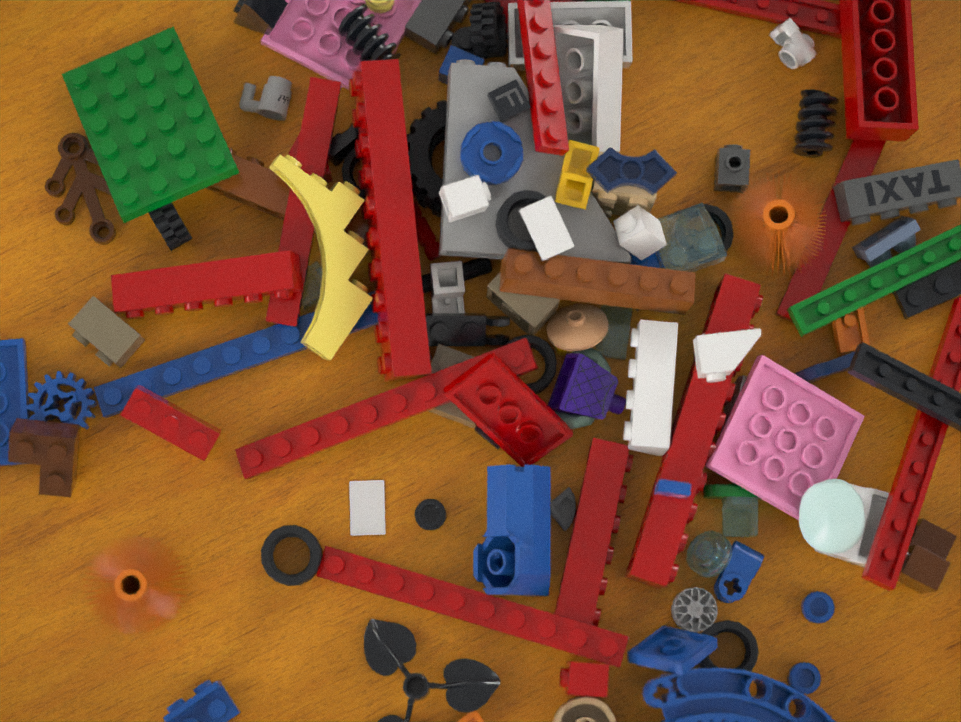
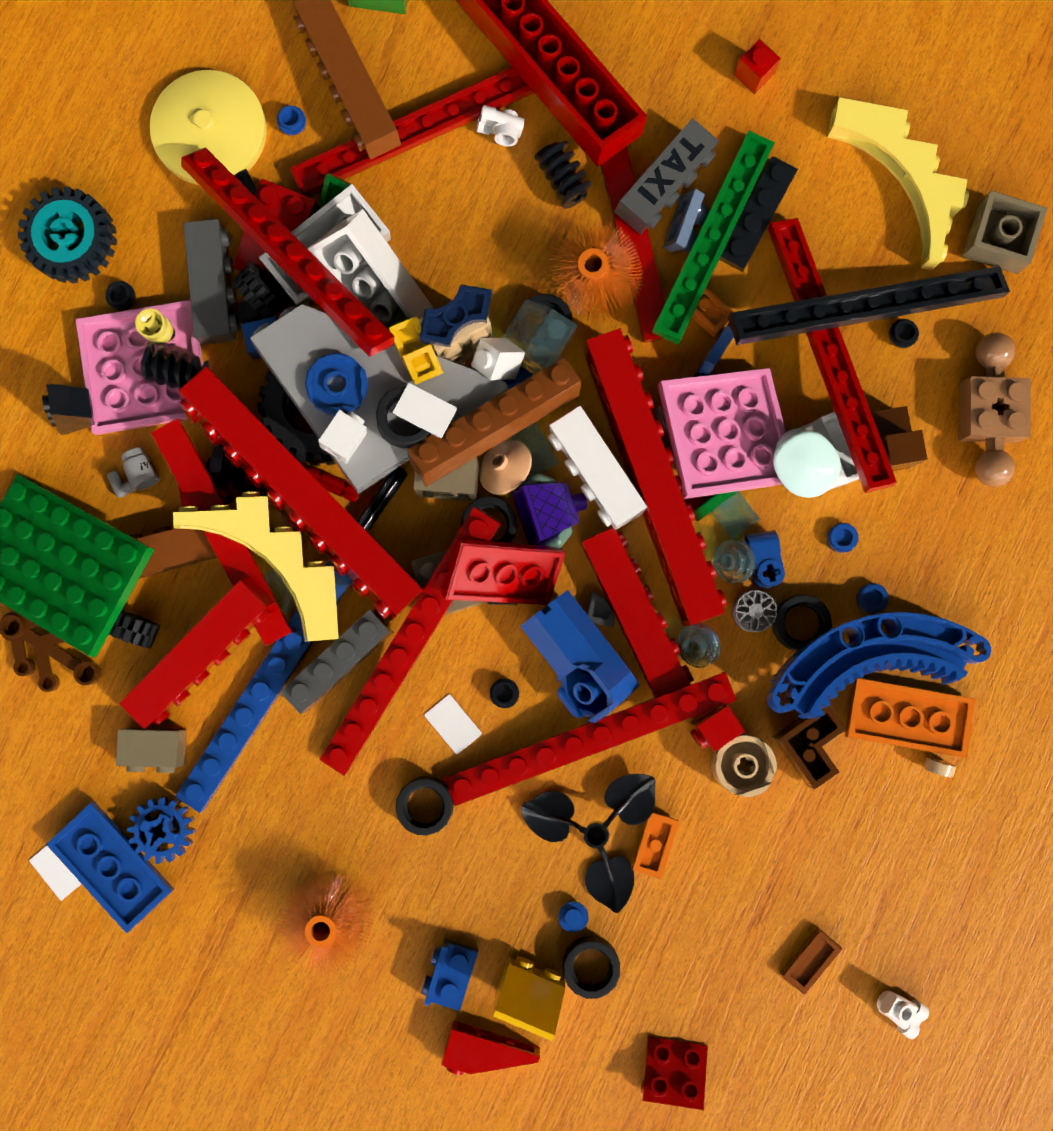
camera: 30 degrees left, 5 degrees up
(50, 446) = (178, 870): reddish brown brick -> none
(171, 422) = (254, 779): red brick -> none
(313, 379) = (336, 662): none -> dark grey brick
(447, 287) = (389, 519): white slope -> none
(464, 329) = (421, 535): black hinge -> none
(508, 101) = (318, 333): black tile -> none
(624, 601) = (699, 645): none -> clear light blue plate
(672, 488) = (674, 536): blue tile -> none
(672, 650) = (764, 655): blue tile -> none
(722, 352) = (632, 403): white slope -> none
(732, 169) = (528, 256): dark grey brick -> none

